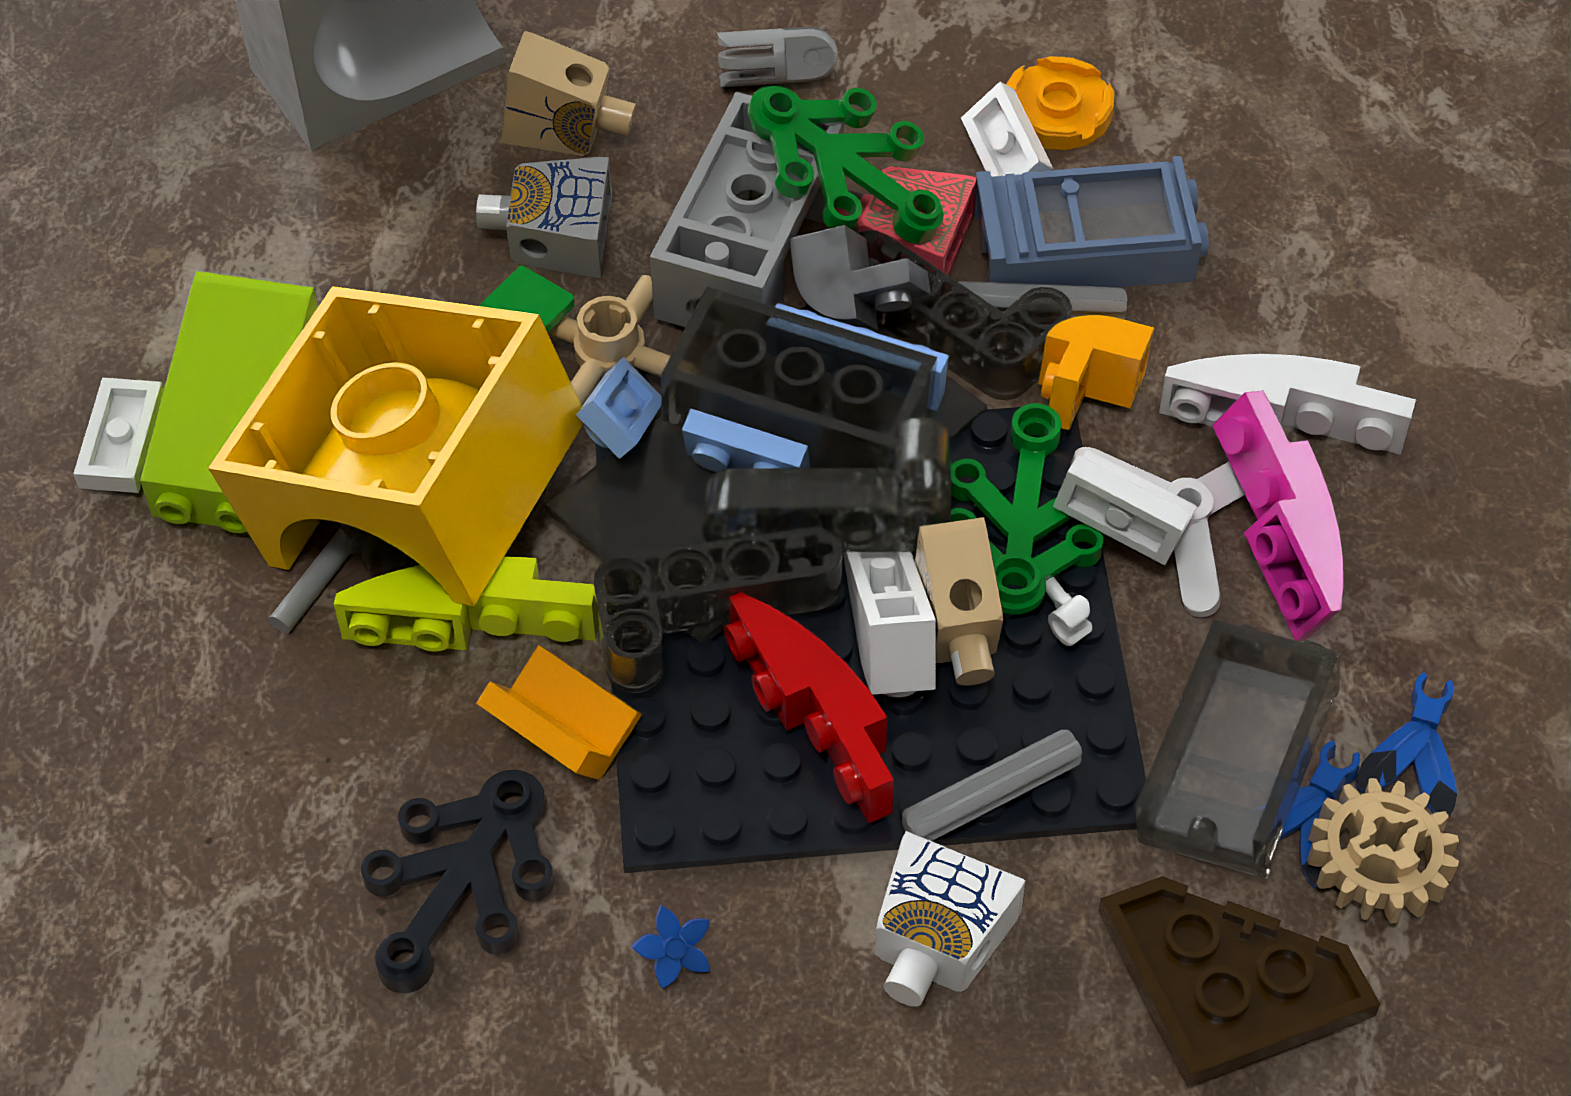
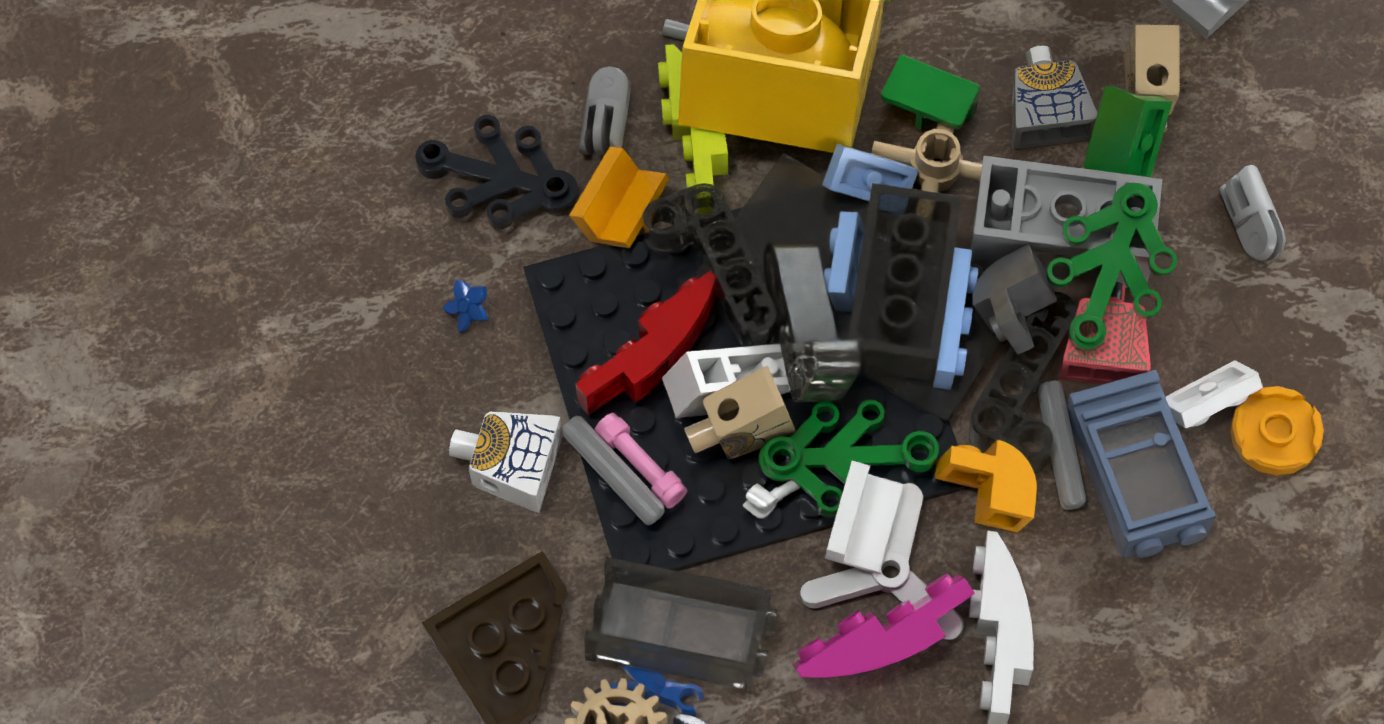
camera: 80 degrees right, 10 degrees up
(406, 711) = (605, 111): none -> light grey arm
(640, 139) = (1127, 133): none -> green panel
(1029, 725) = (665, 486): none -> bright pink bar

